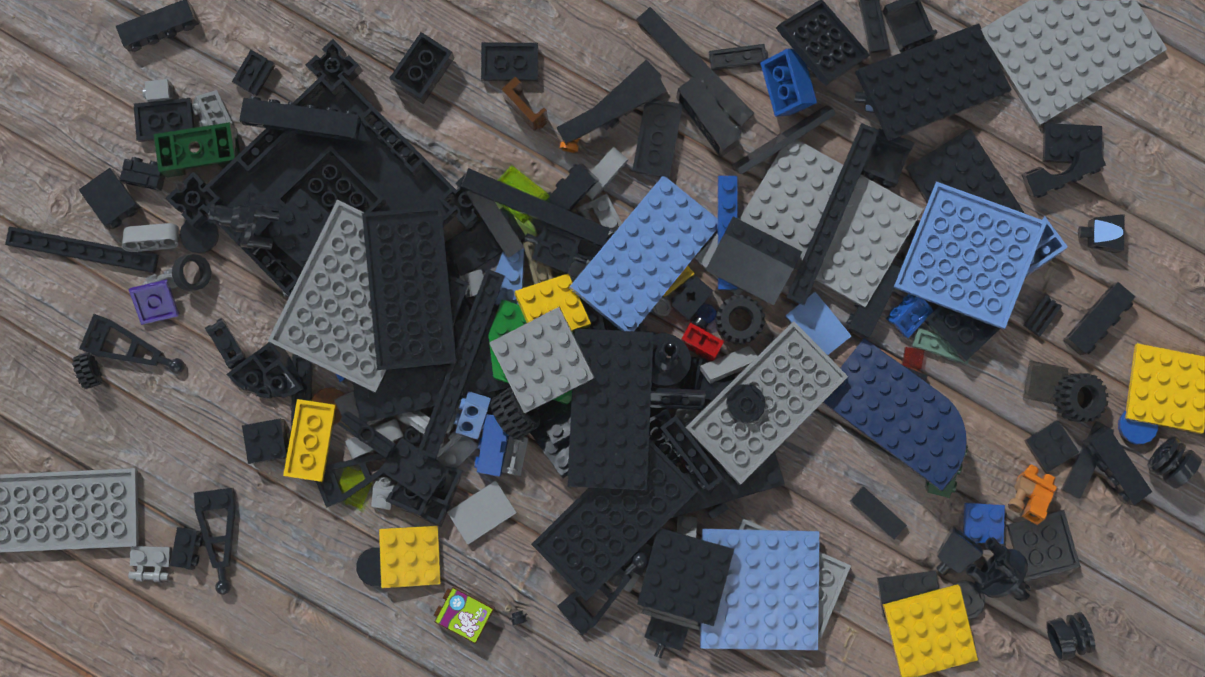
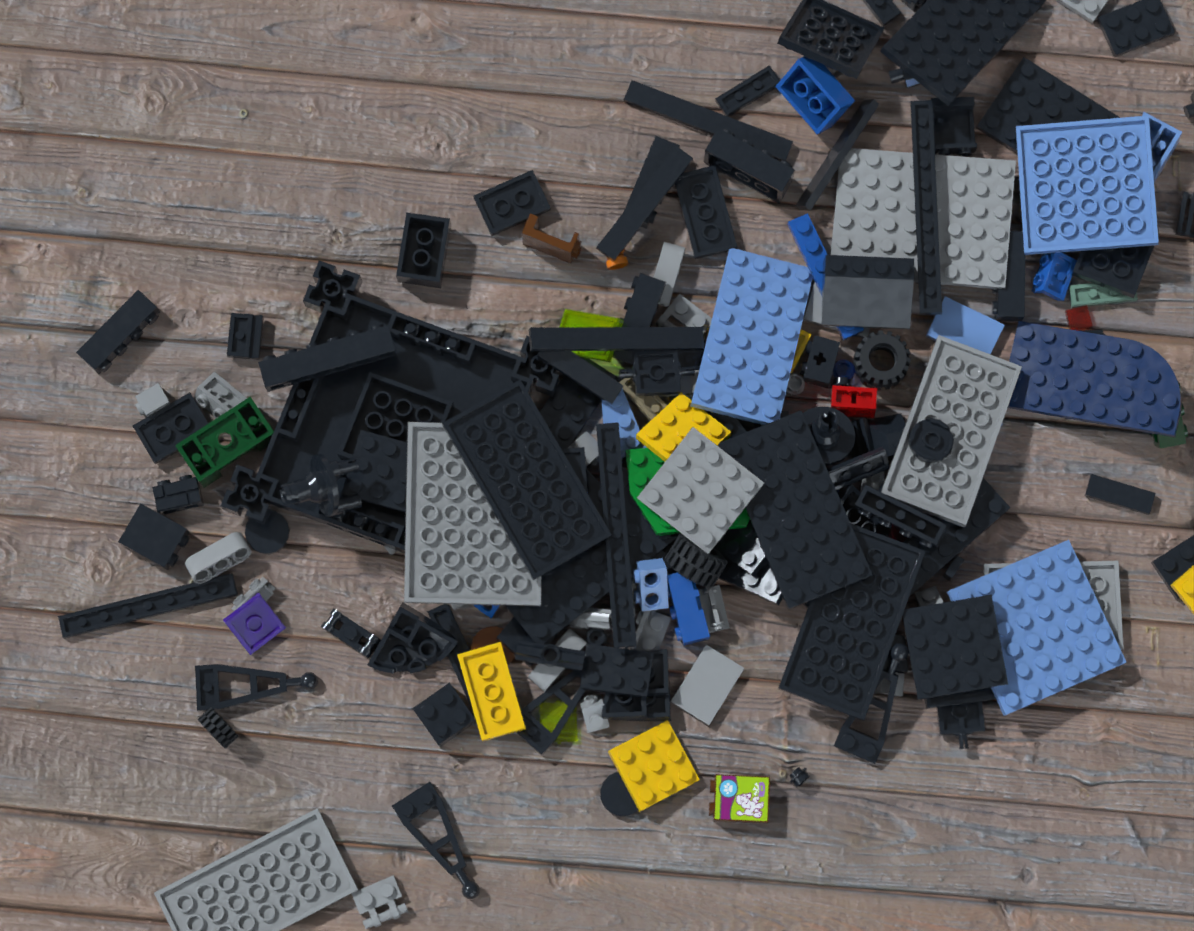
camera: 25 degrees left, 5 degrees down
(178, 276) = (269, 579): black tyre -> none
(186, 548) = (411, 868): black bracket -> none
(728, 364) = (892, 411): light grey tile -> none
(1086, 160) = (1158, 36): black arch -> none

